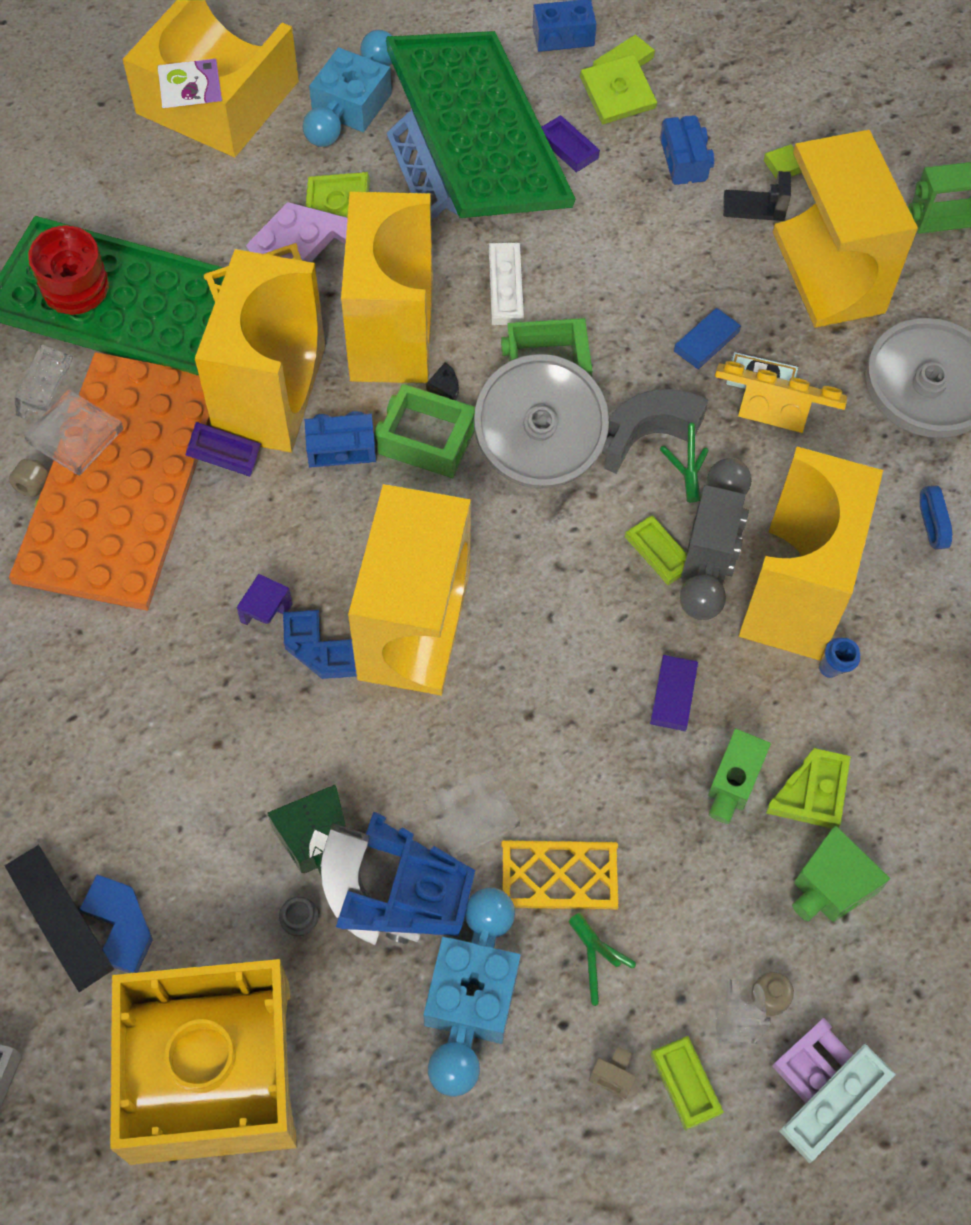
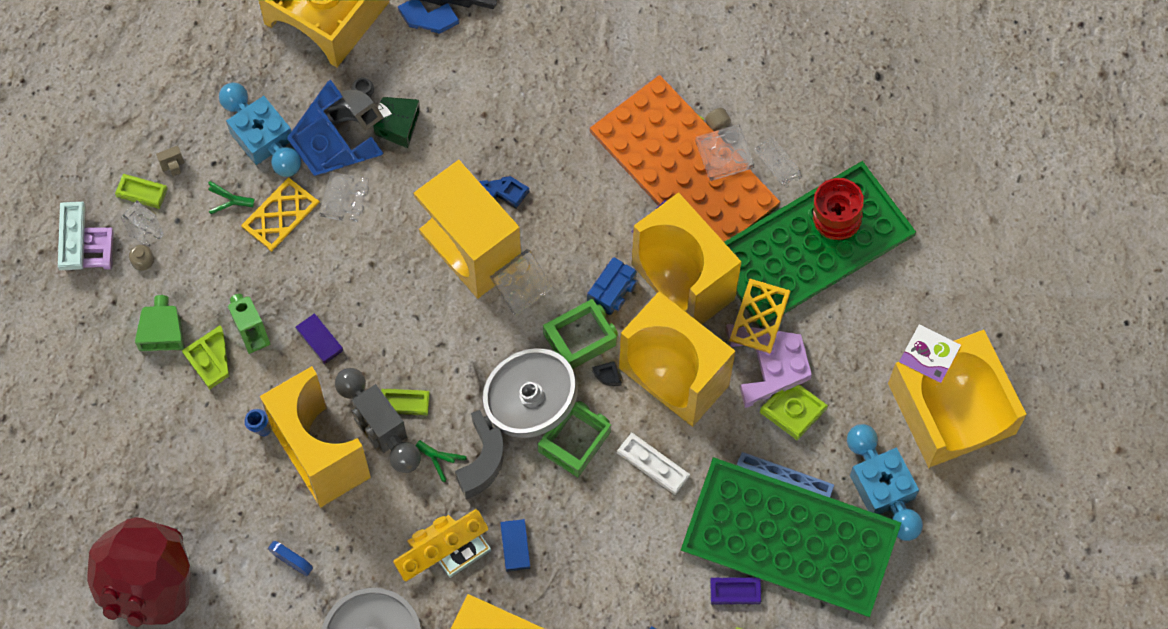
camera: 130 degrees right, 5 degrees up
(264, 600) = (540, 179): dark purple panel -> none

